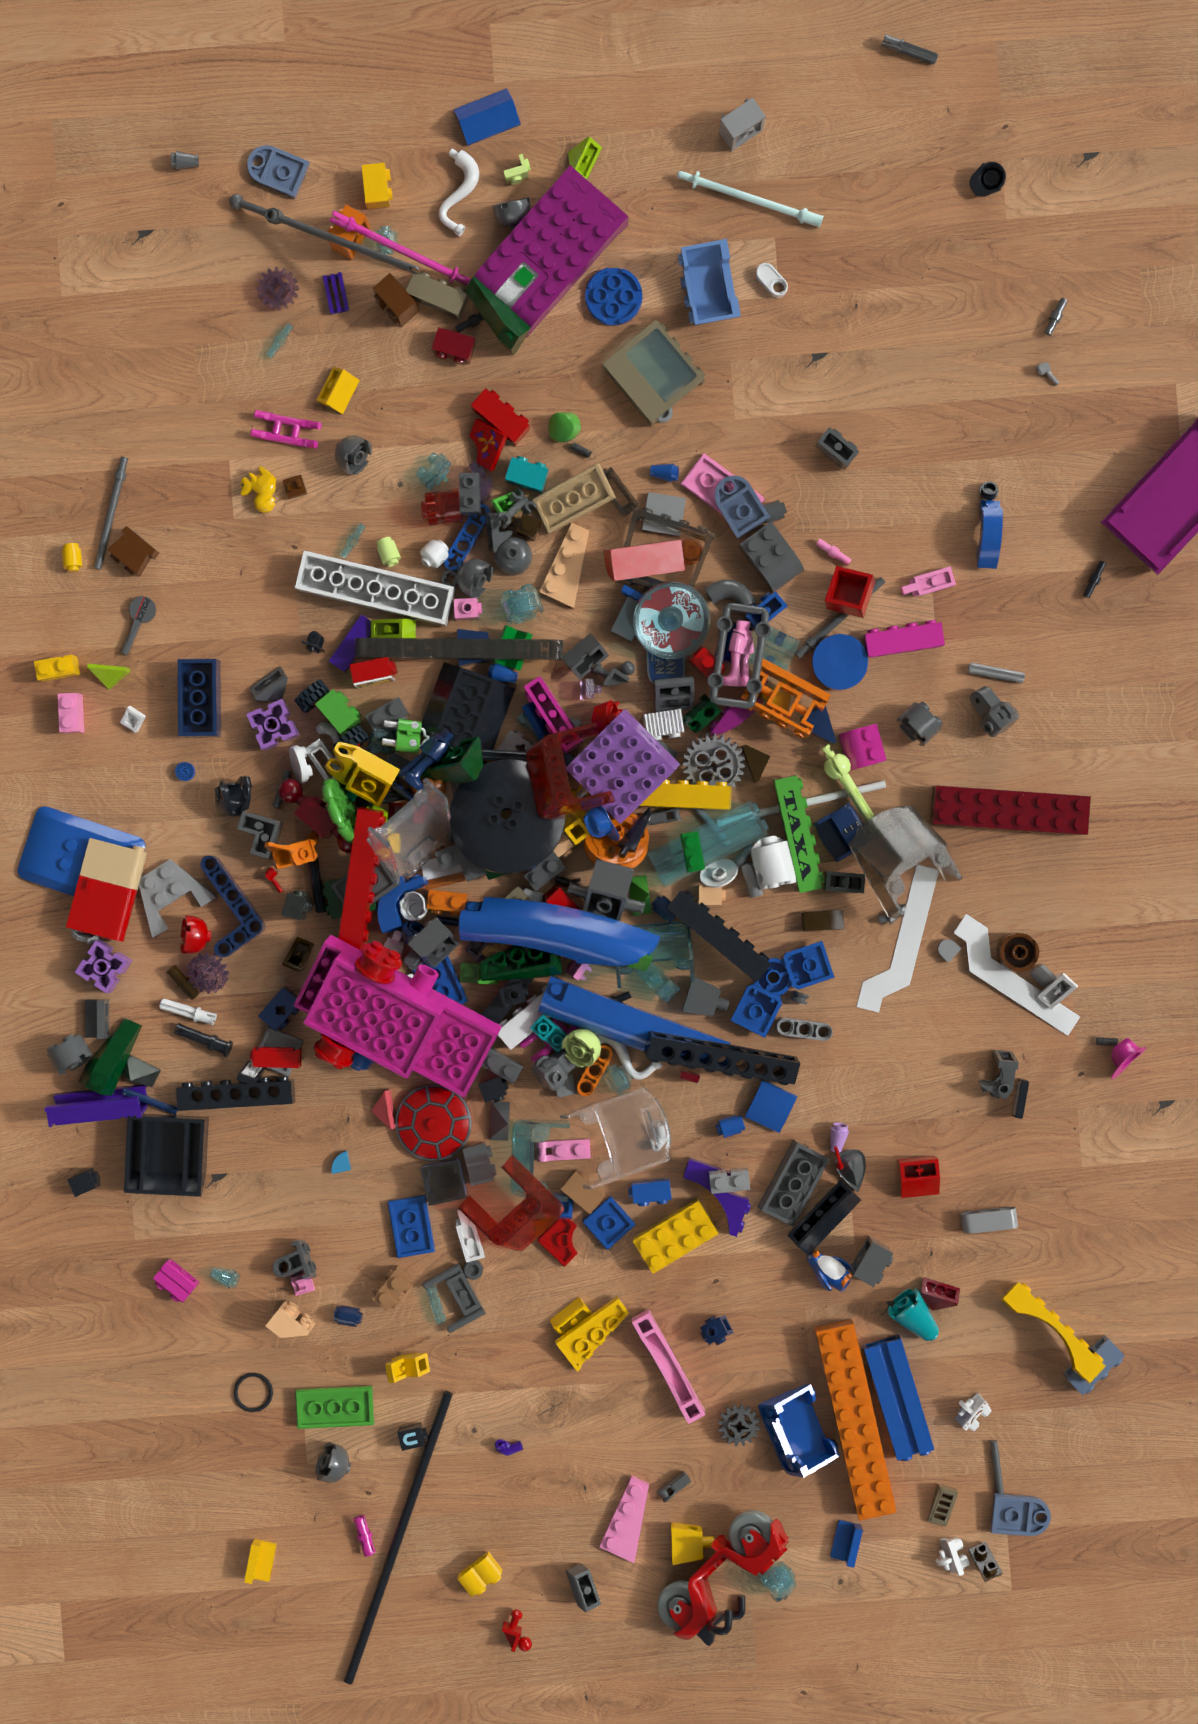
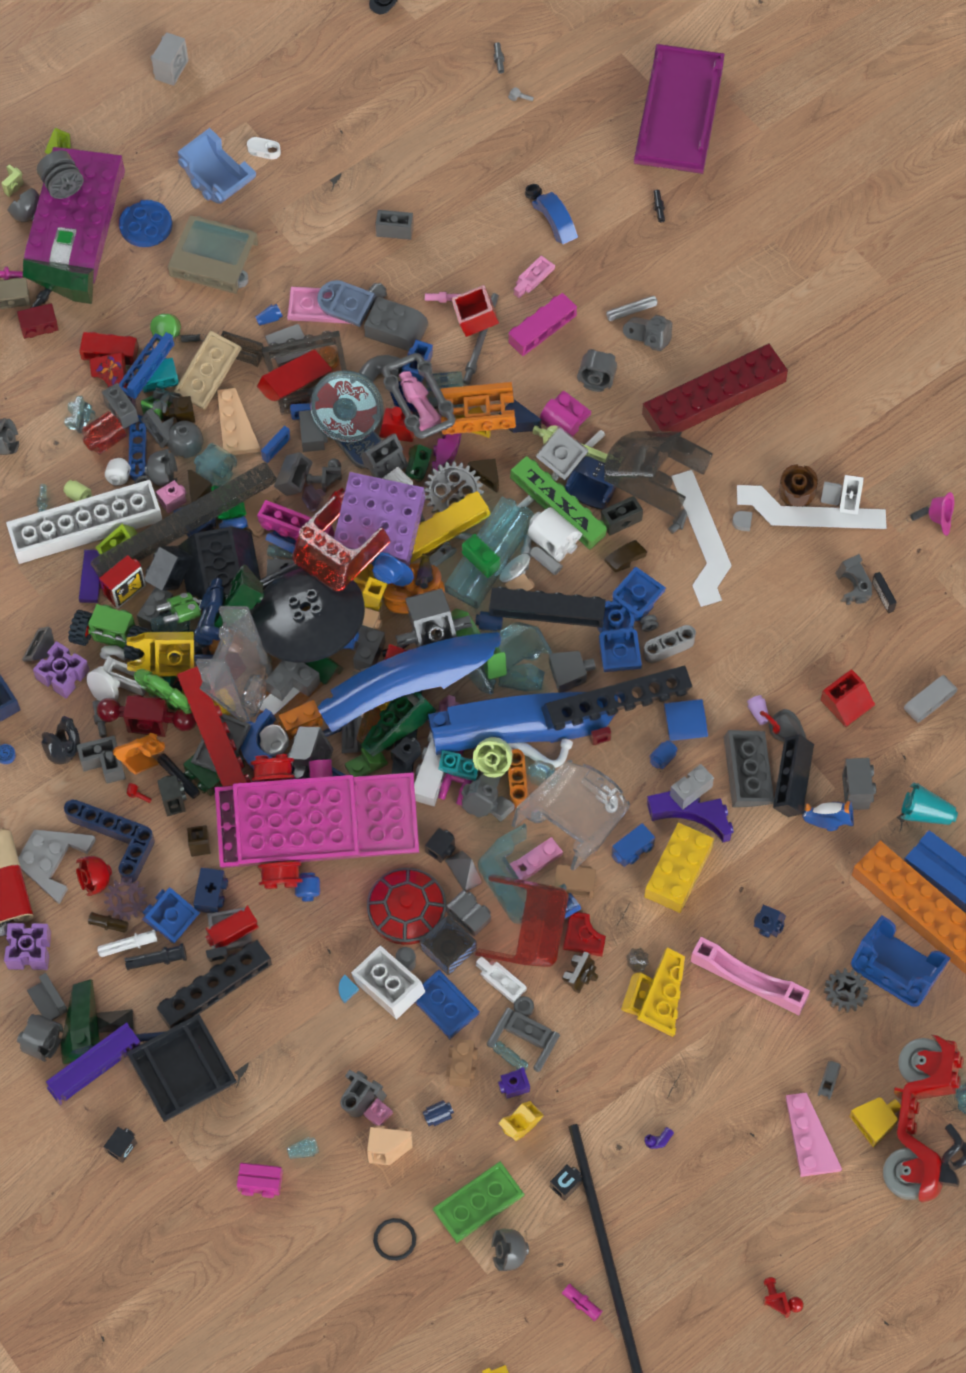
camera: 30 degrees left, 25 degrees down
(235, 1009) = (170, 914): none -> blue plate
(314, 642) = (58, 588): black hinge -> none
(373, 1186) = (388, 982): none -> white brick
(384, 1109) = (356, 920): coral slope -> none
(401, 1173) = (406, 957): none -> dark grey brick
(418, 687) = (168, 567): none -> black brick
(430, 1330) = (512, 1090): none -> dark purple brick
(480, 1574) = (711, 1267): yellow brick -> none
(493, 617) = (198, 485): none -> dark brown slope
(502, 1065) = (433, 818): dark grey brick -> none
(520, 467) = (148, 367): none -> blue fence
(528, 1276) = (583, 973): none -> dark brown hips
(552, 211) = (60, 174): none -> dark grey wheel
(583, 1587) = (811, 1214): dark grey brick -> none
(589, 614) = (275, 444): none -> blue tile
(589, 1290) = (637, 959): none -> clear smoke piece
(608, 1222) = (615, 896): blue tile -> none
(803, 216) = (258, 94): light aqua bar -> none
(830, 792) = (562, 452): none -> light grey container
(840, 662) = (503, 363): blue piece -> none
(938, 1294) = (936, 782): dark red slope -> none

